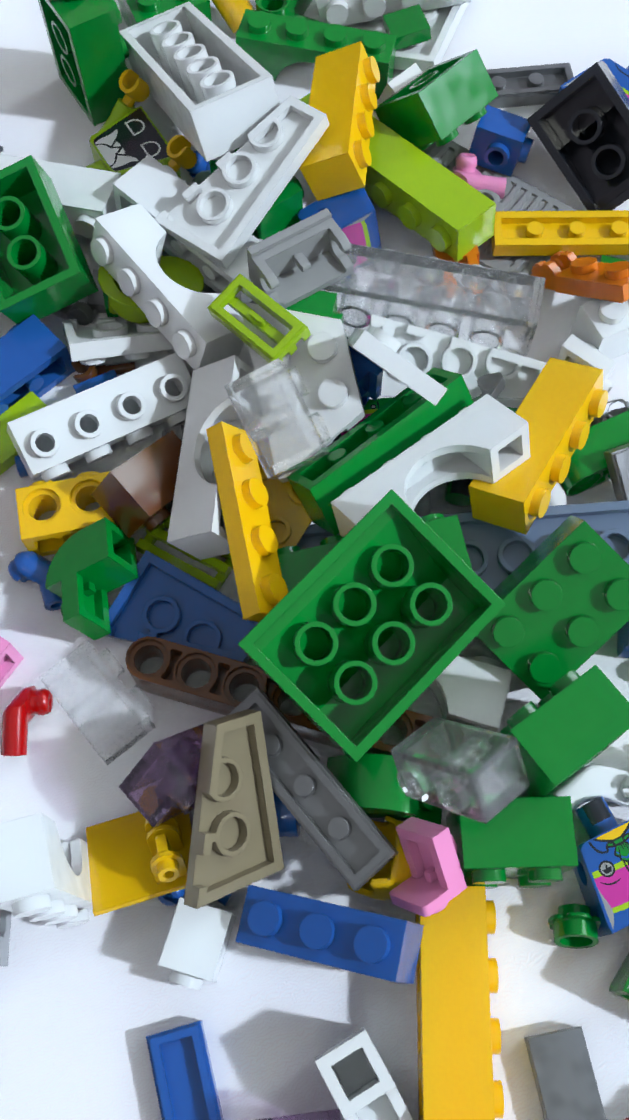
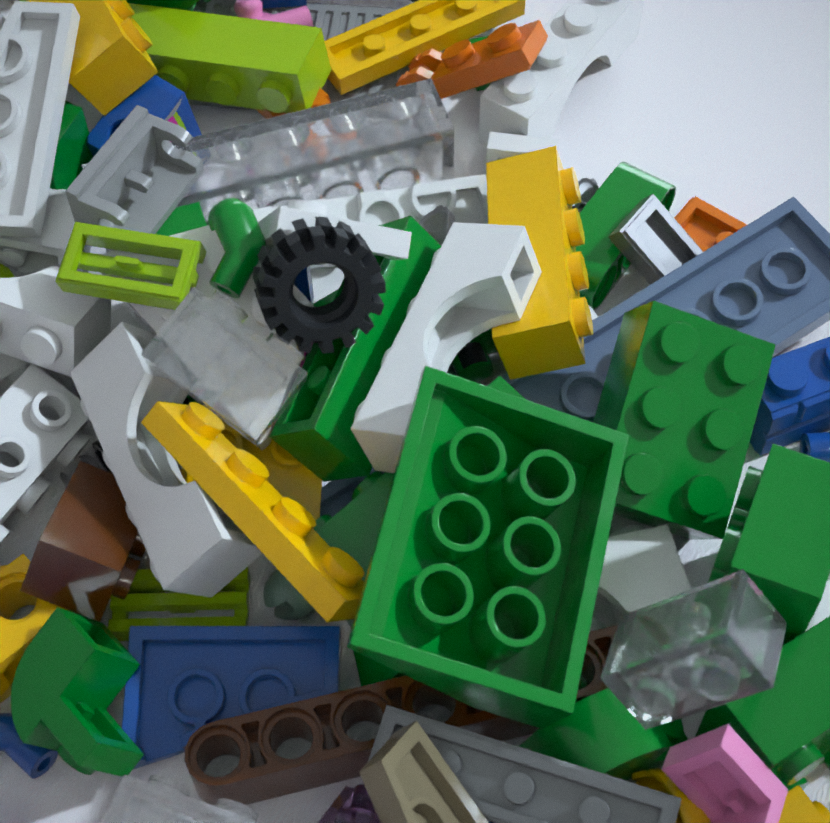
camera: 30 degrees left, 10 degrees down
(333, 339) = (241, 241): none -> green arm
(371, 370) = (328, 322): none -> black tyre

